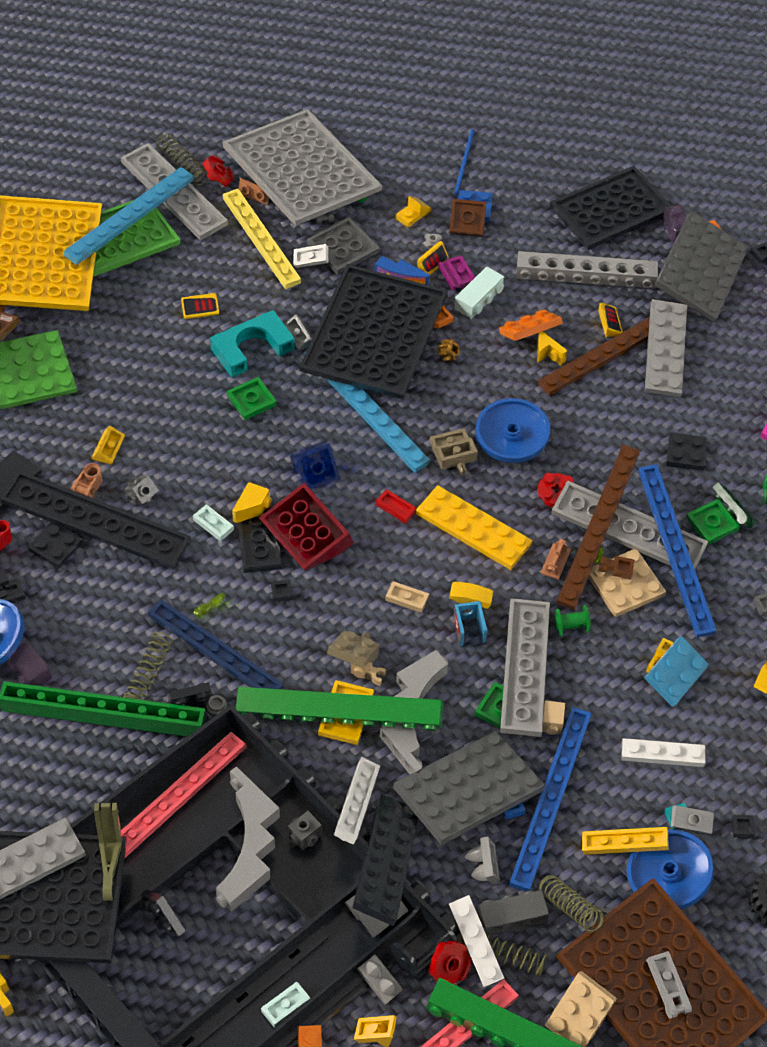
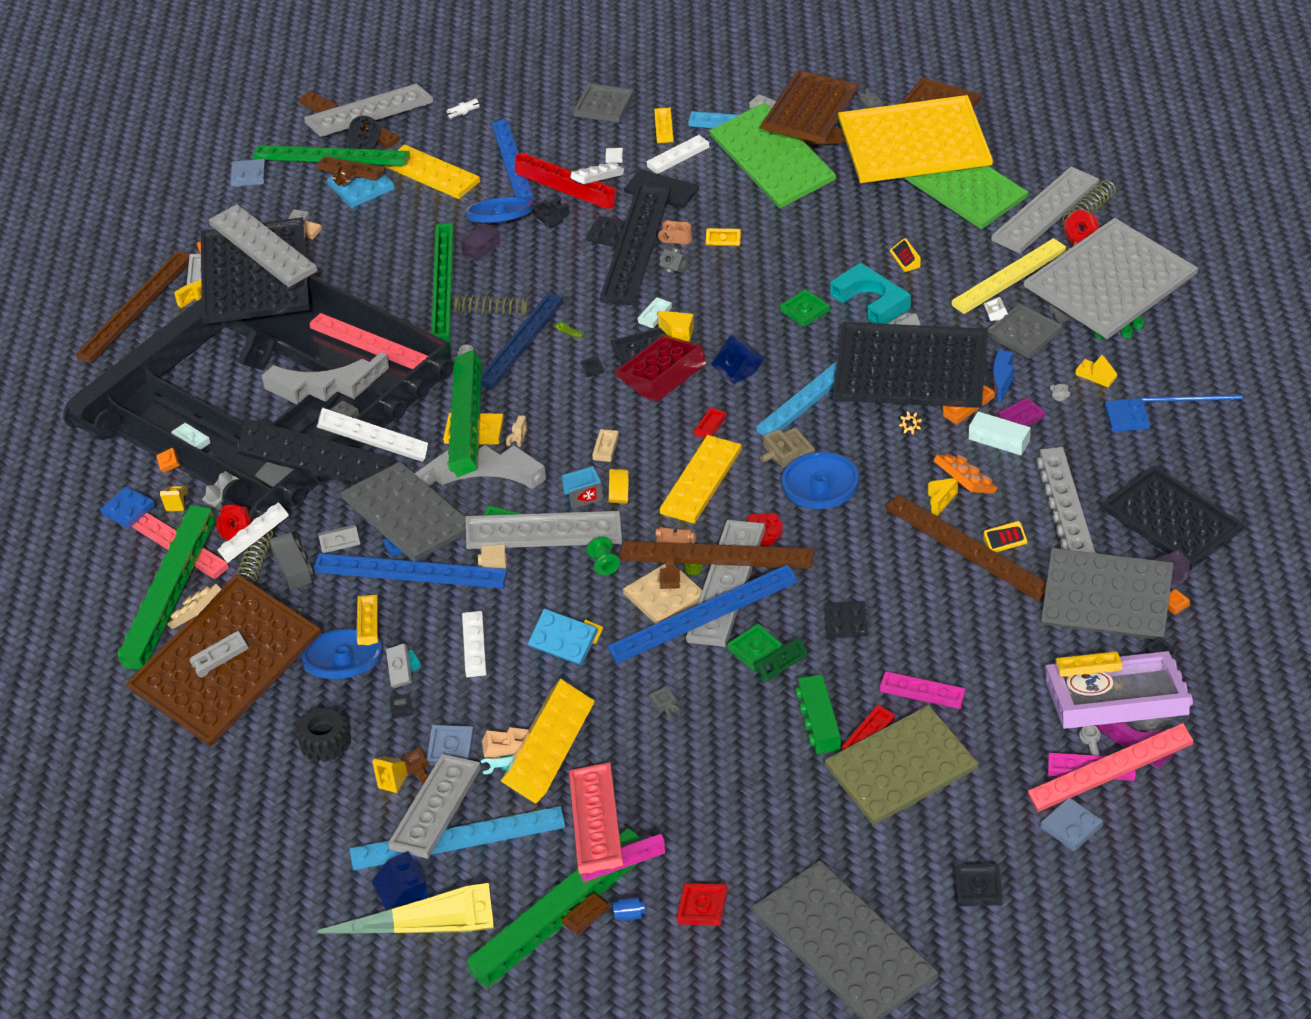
camera: 85 degrees right, 10 degrees down
(110, 843) = (287, 295): olive hinge -> none
(128, 216) = (987, 180): dark azure plate -> none
(195, 693) = (464, 329): black plate -> none
(354, 648) = (534, 416): dark tan plate -> none
(429, 261) = (1036, 393): slope -> none
(467, 217) = (1100, 407): reddish brown plate -> none
(593, 908) = (290, 582): olive piece -> none
(666, 348) = (978, 582): light grey plate -> none

